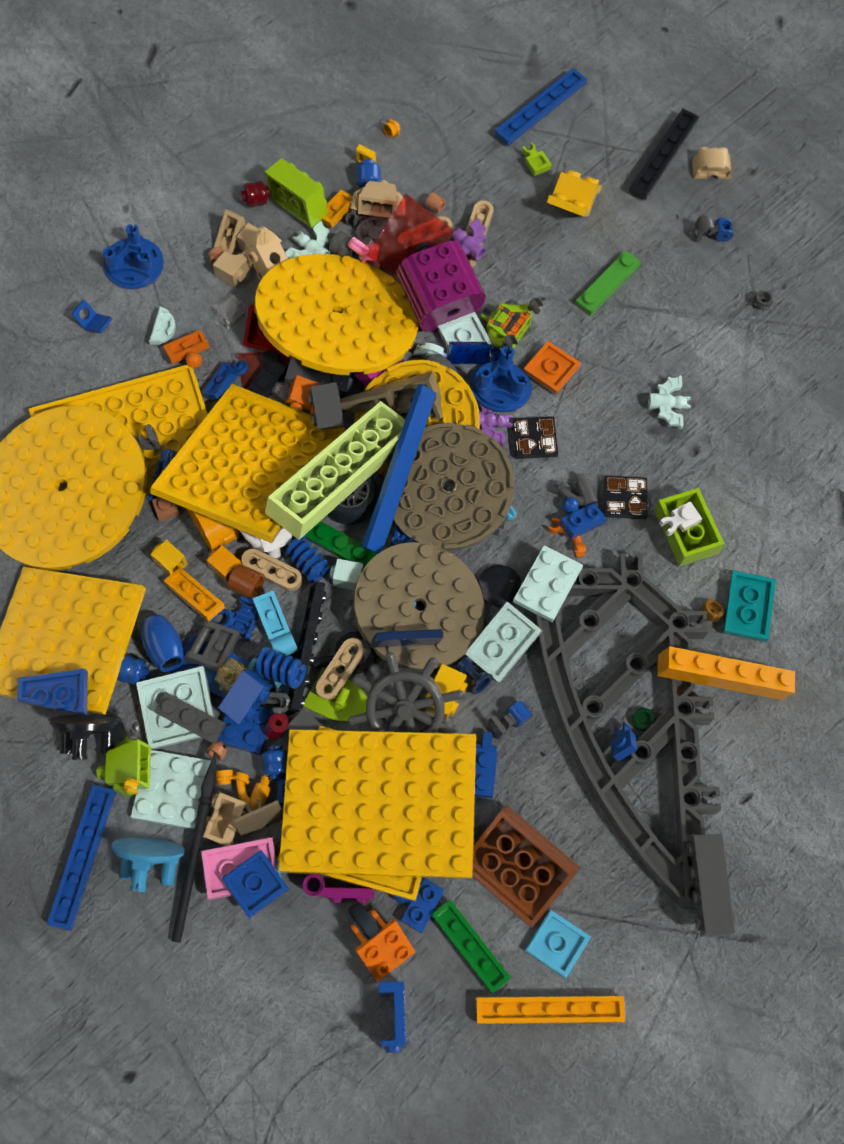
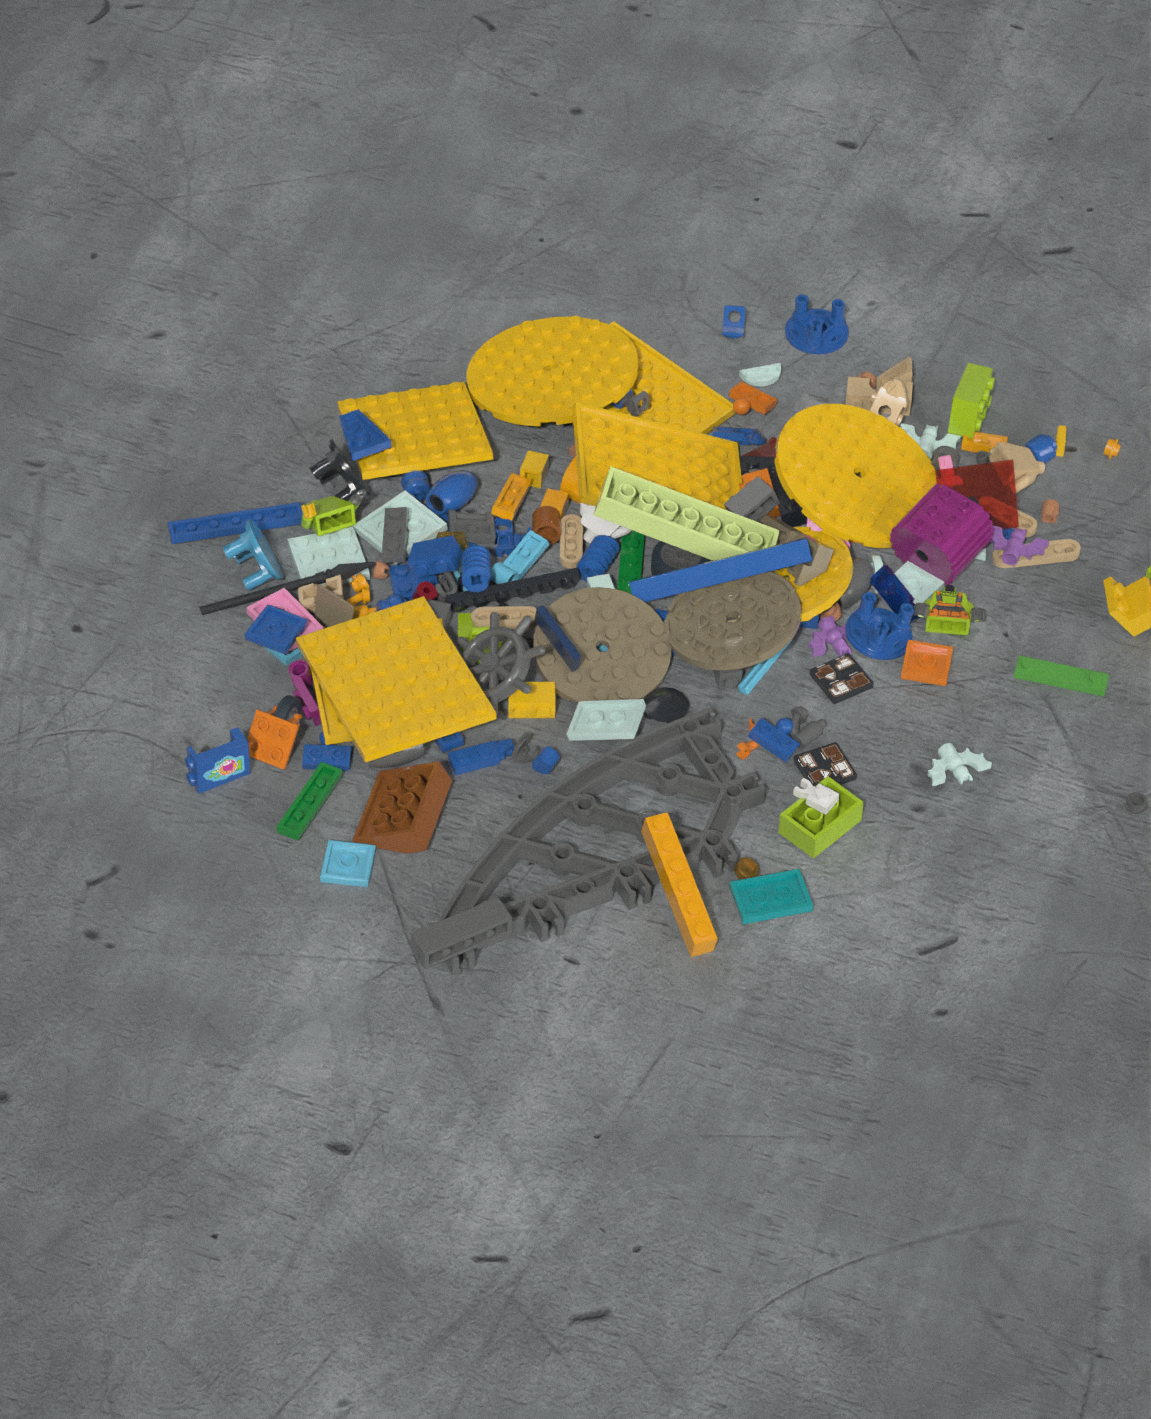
camera: 65 degrees right, 20 degrees down
(255, 194) = (949, 377): dark red piece -> none
(479, 681) = (557, 719): dark blue piece -> none
(548, 583) = (684, 726): light aqua plate -> none
(550, 1010) = (285, 874): light orange plate -> none
(624, 742) = (562, 835): blue plate -> none
(643, 719) = (601, 851): dark green tile -> none

